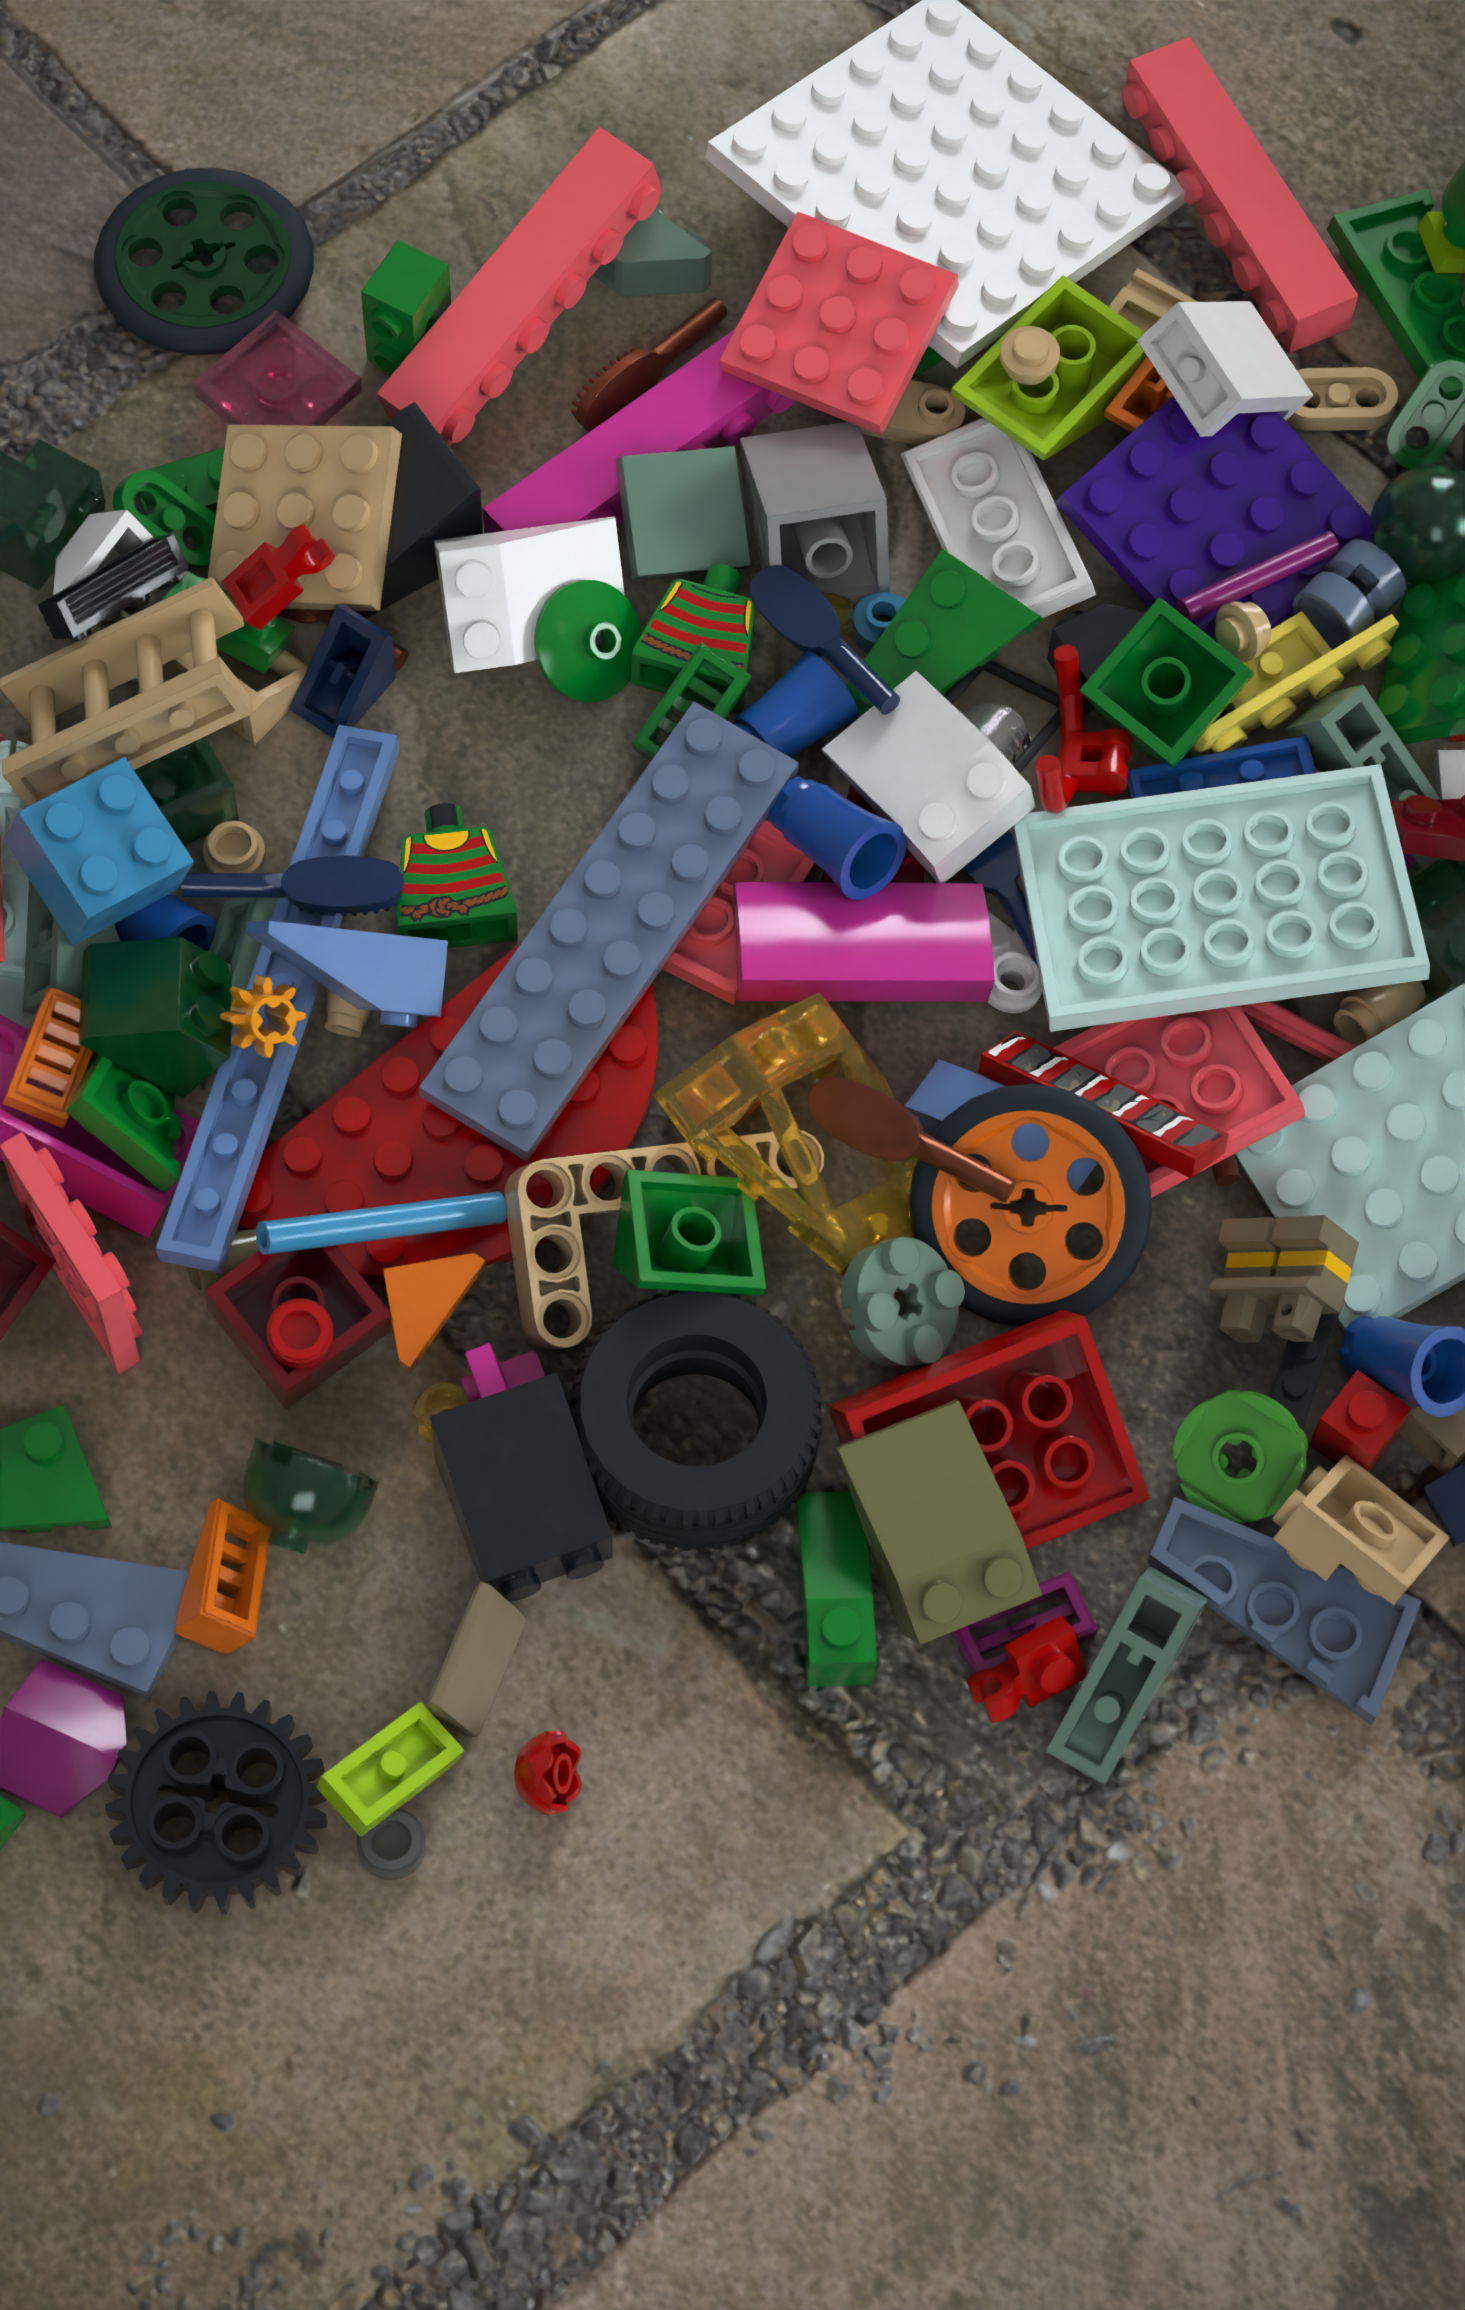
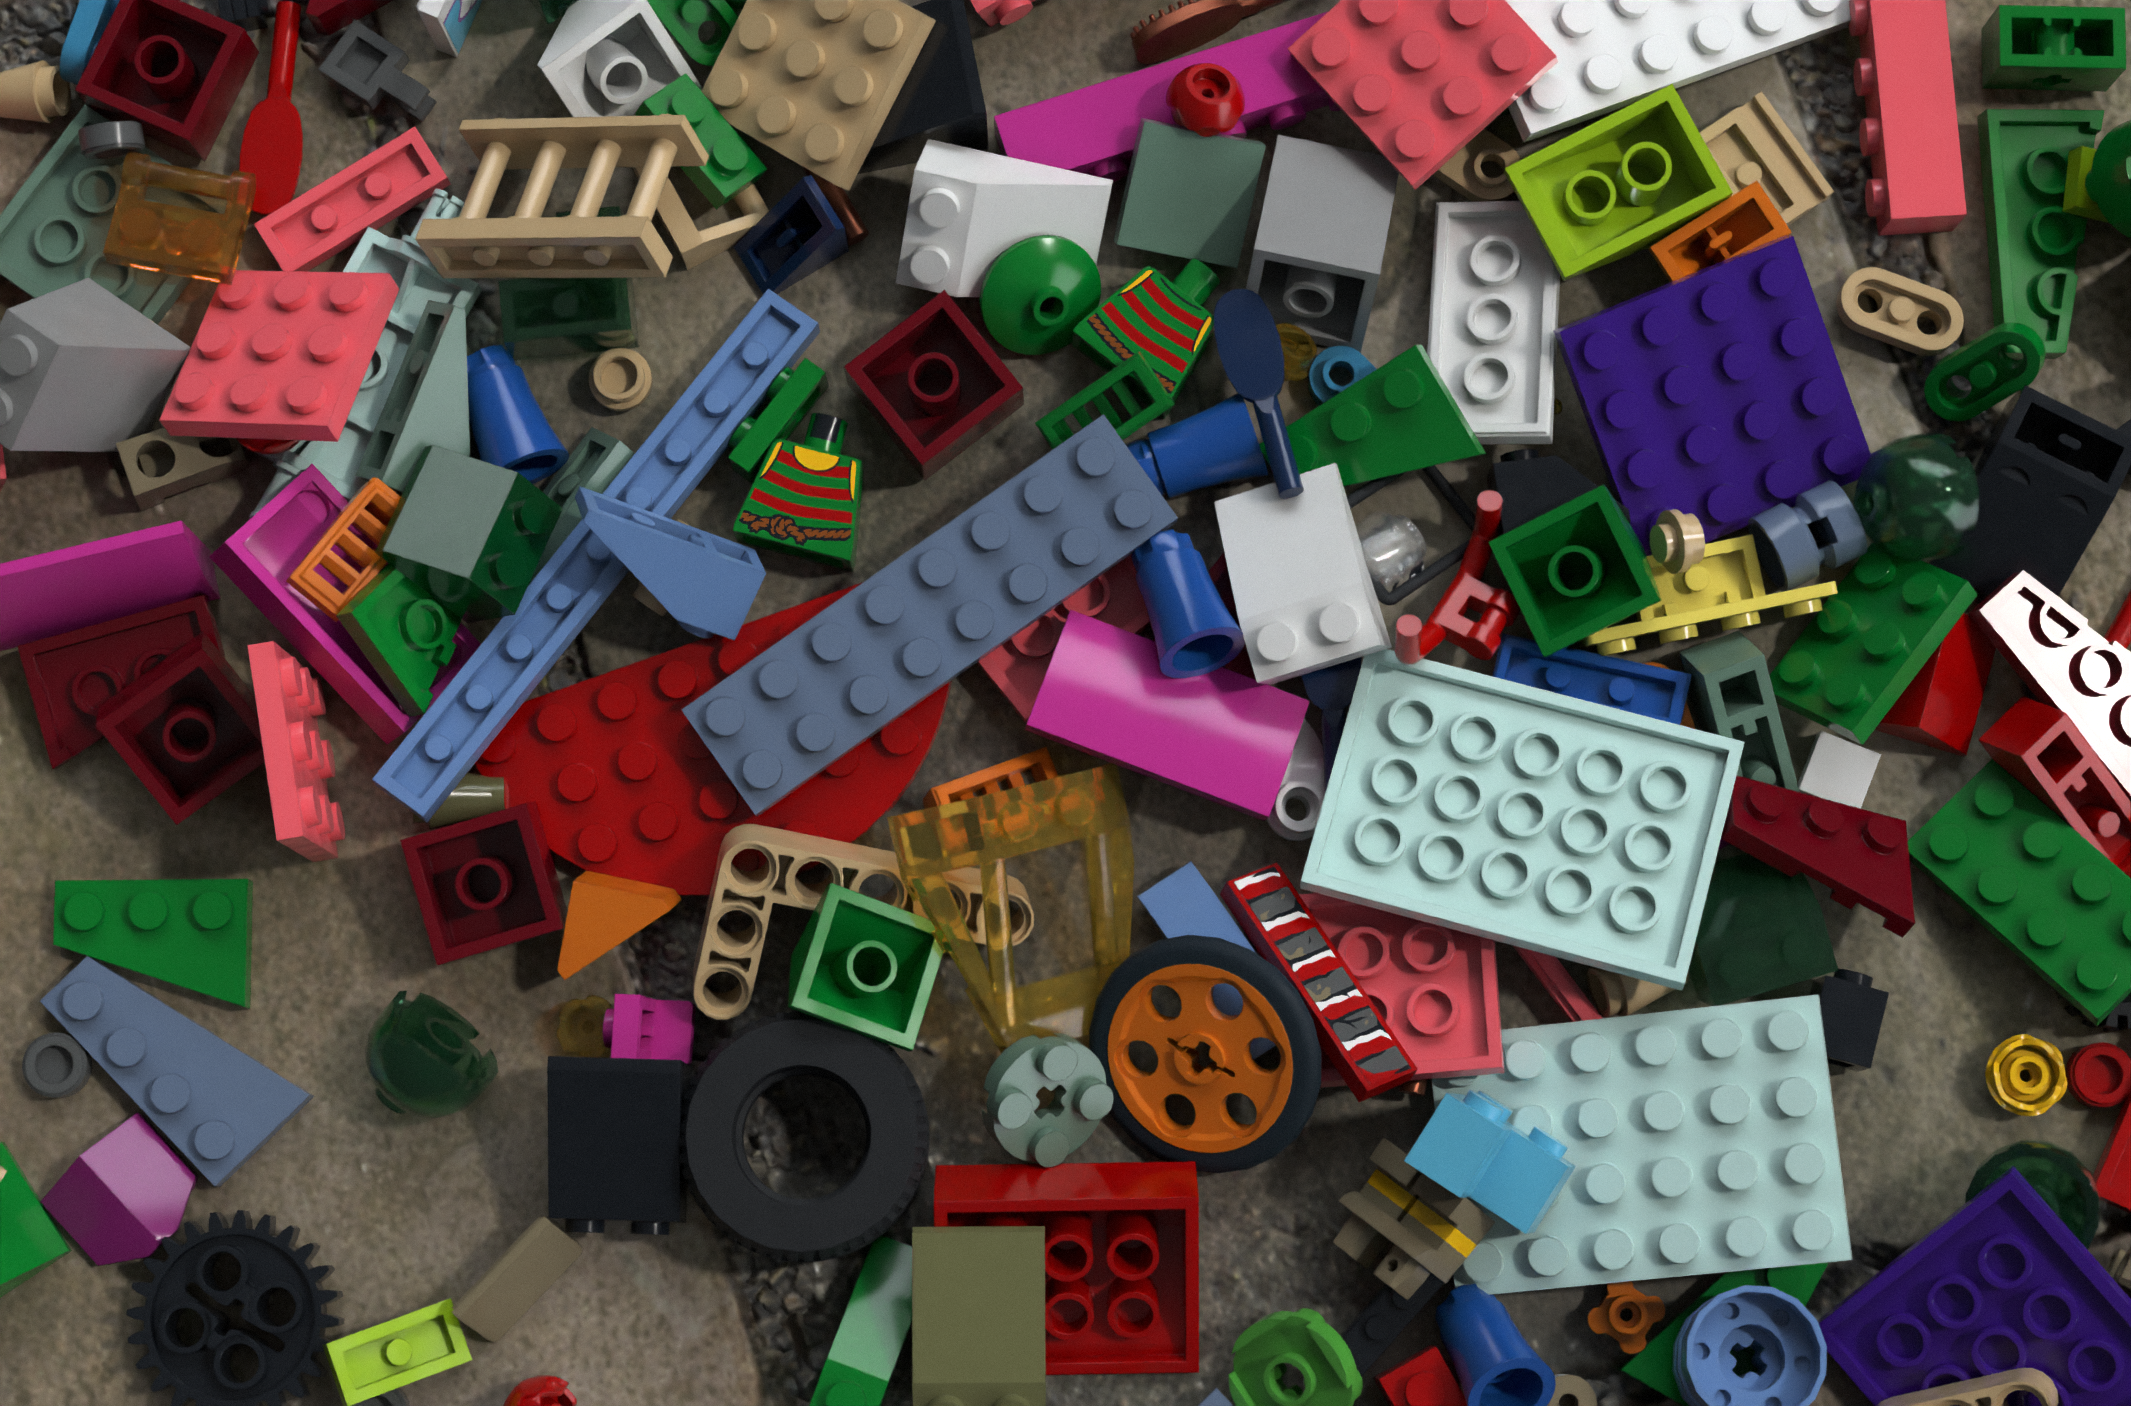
camera: 25 degrees right, 15 degrees up
(98, 850) = (467, 361): dark azure brick -> none
(113, 587) = (600, 73): black piece -> none
(210, 1616) = (310, 1094): orange slope -> none
(248, 1022) = (544, 596): light orange gear -> none
(269, 576) = (747, 122): red plate -> none
(299, 1333) = (468, 918): red tile -> none
(314, 884) = (671, 461): dark blue piece -> none
(380, 1222) = (588, 837): dark azure piece -> none
(400, 810) = (791, 400): none -> green plate
(527, 745) = (934, 385): none -> dark red brick
(667, 421) = (1206, 99): none -> red plate
(890, 1132) = (1101, 935): copper piece -> none
(1029, 354) = (1595, 165): tan plate -> none
(1222, 363) = (1785, 254): white panel -> none
(1258, 576) = (1721, 486): magenta bar -> none
(1314, 1176) = (1486, 1158): none -> medium azure brick
(1365, 149) = (2053, 48): none -> green brick

